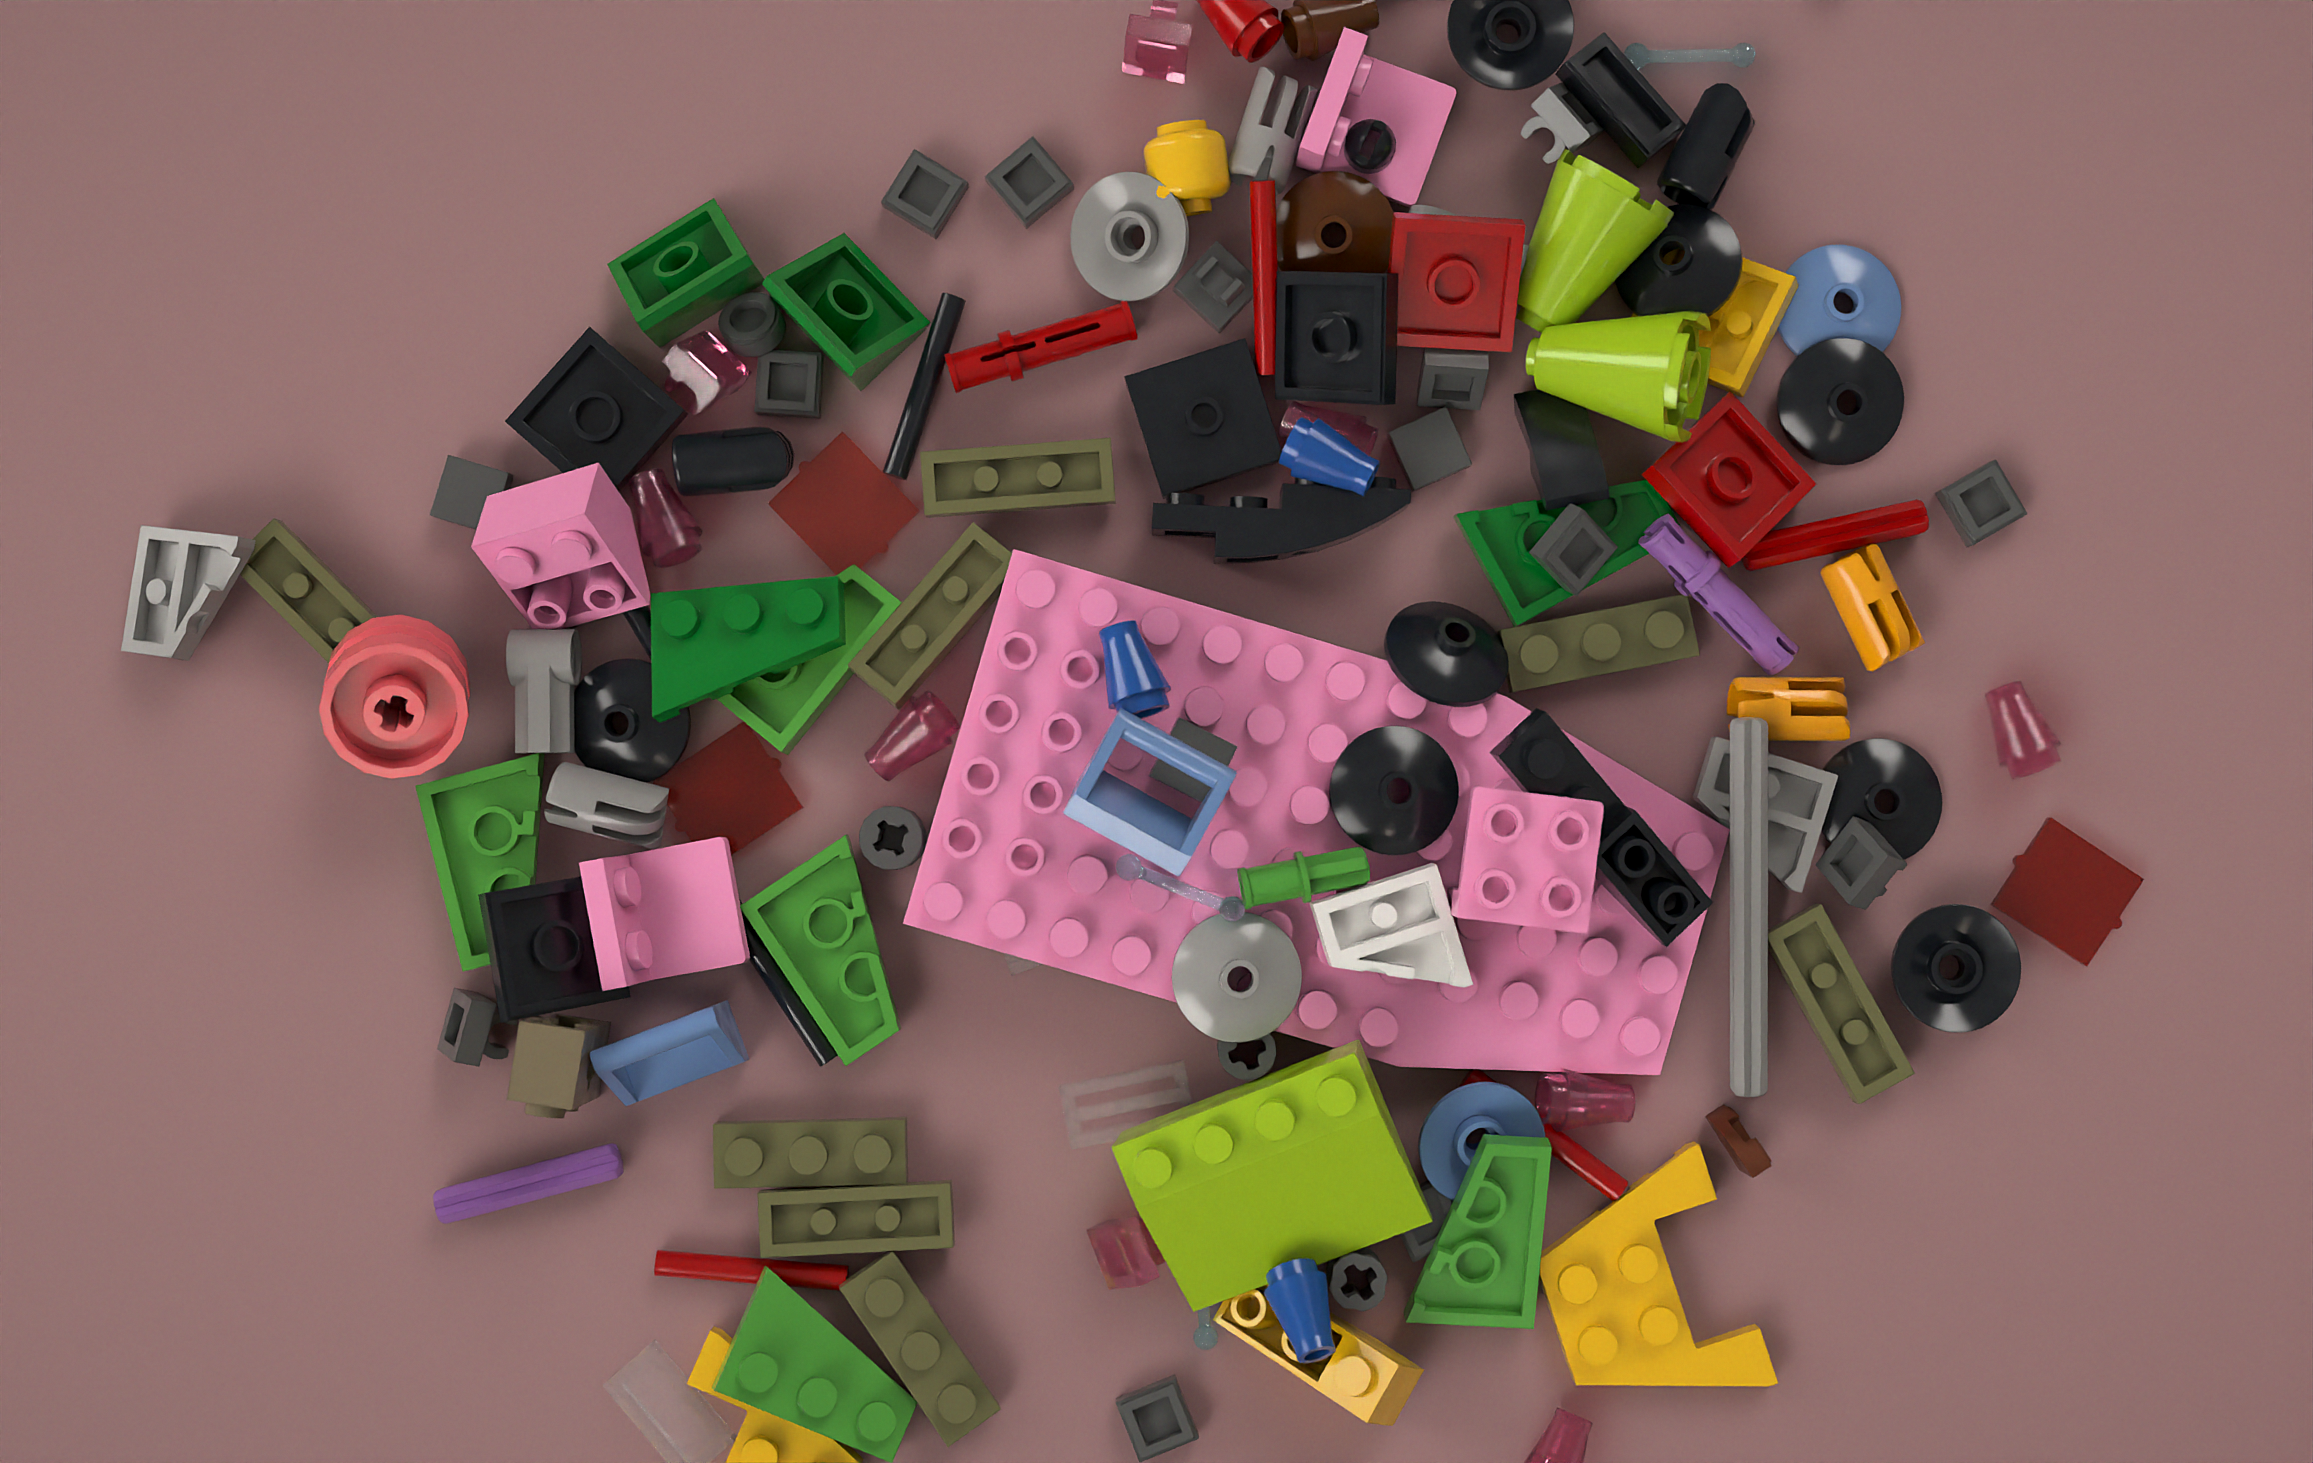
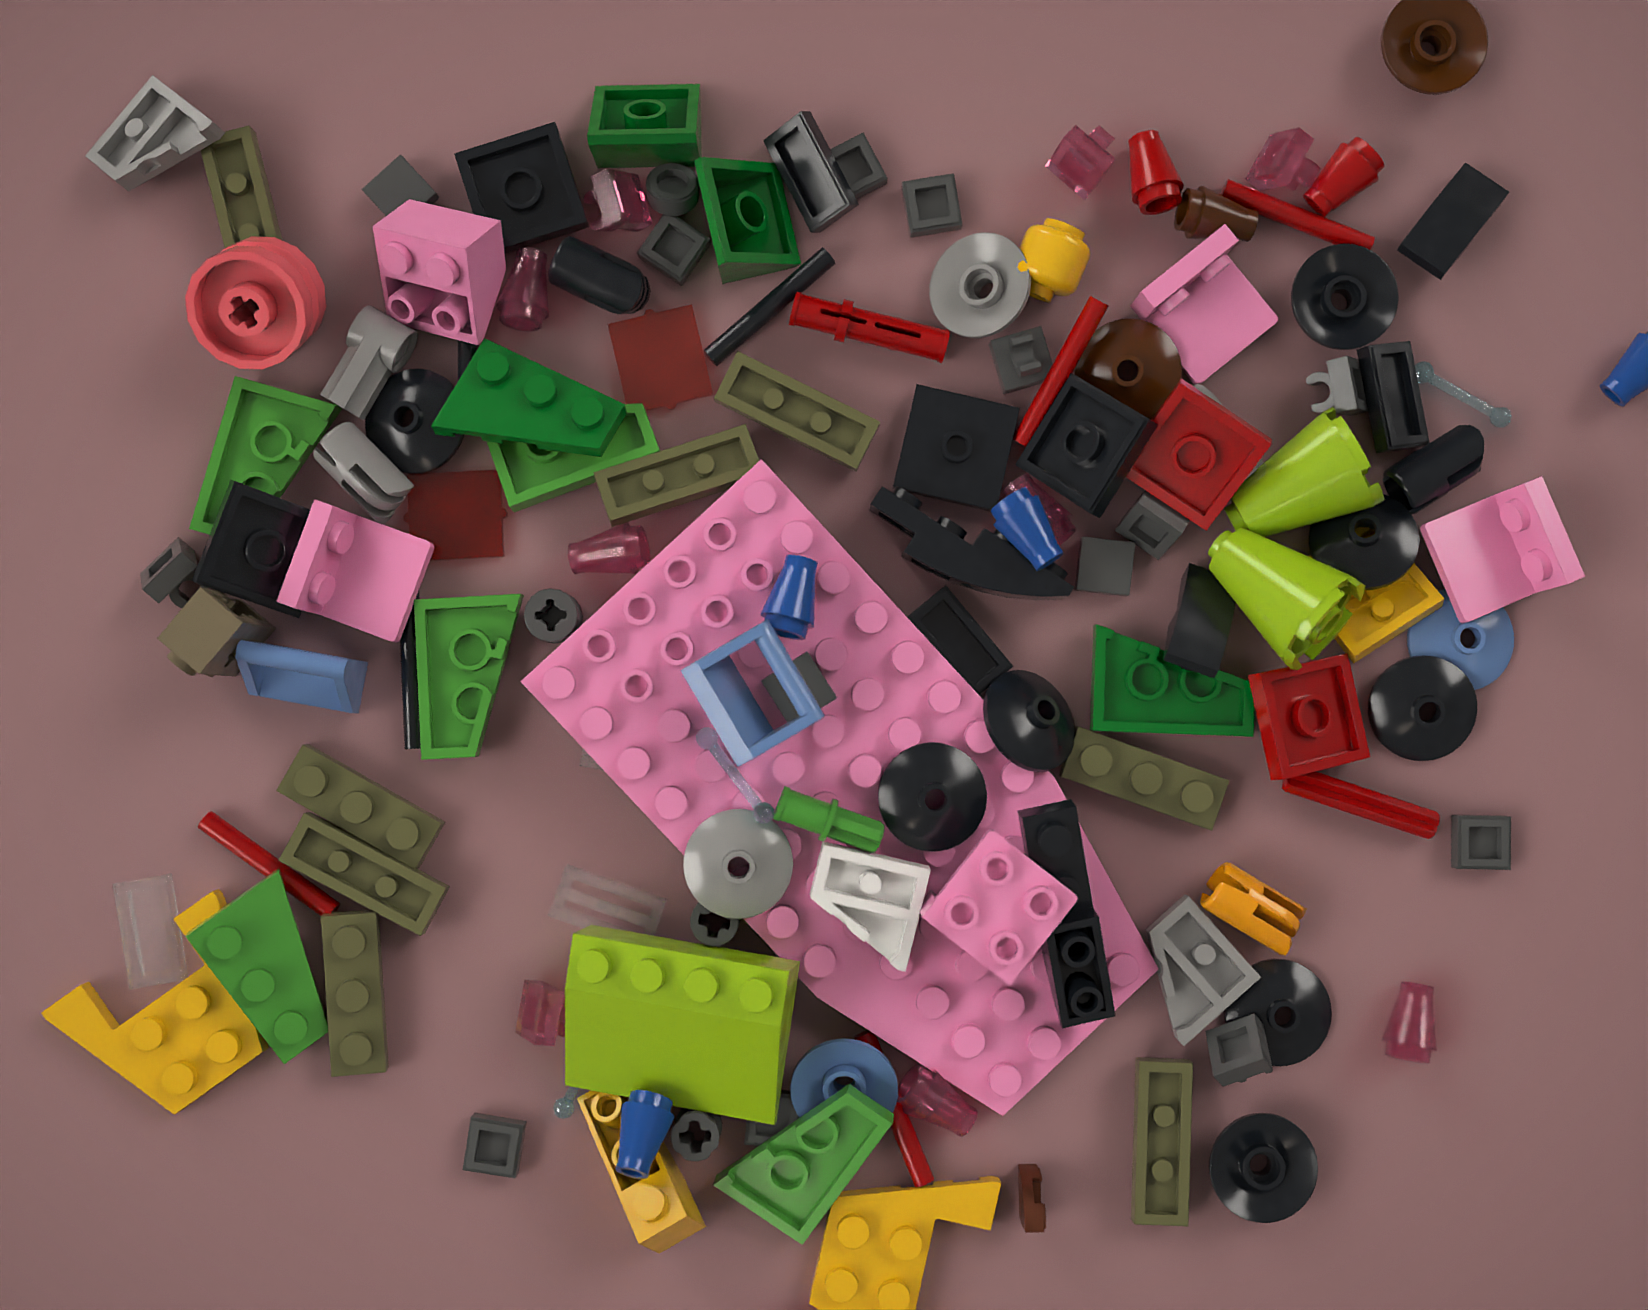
camera: 30 degrees right, 0 degrees up
(528, 1183) = (147, 708): medium lavender axle -> none
(884, 222) = (810, 172): none -> black tile
(1265, 148) = (1116, 279): light grey arm -> none
(1326, 612) = (960, 639): none -> black tile
(1383, 149) = (1199, 331): black hinge -> none
(1573, 549) = (1166, 700): dark grey tile -> none
(1708, 584) = (1247, 775): medium lavender pin -> none
(1749, 906) = (1139, 1033): light grey axle -> none
(1823, 193) = (1501, 550): none -> bright pink bracket
(1872, 606) = (1357, 869): light orange arm -> none
(2067, 891) = (1376, 1159): clear red piece -> none

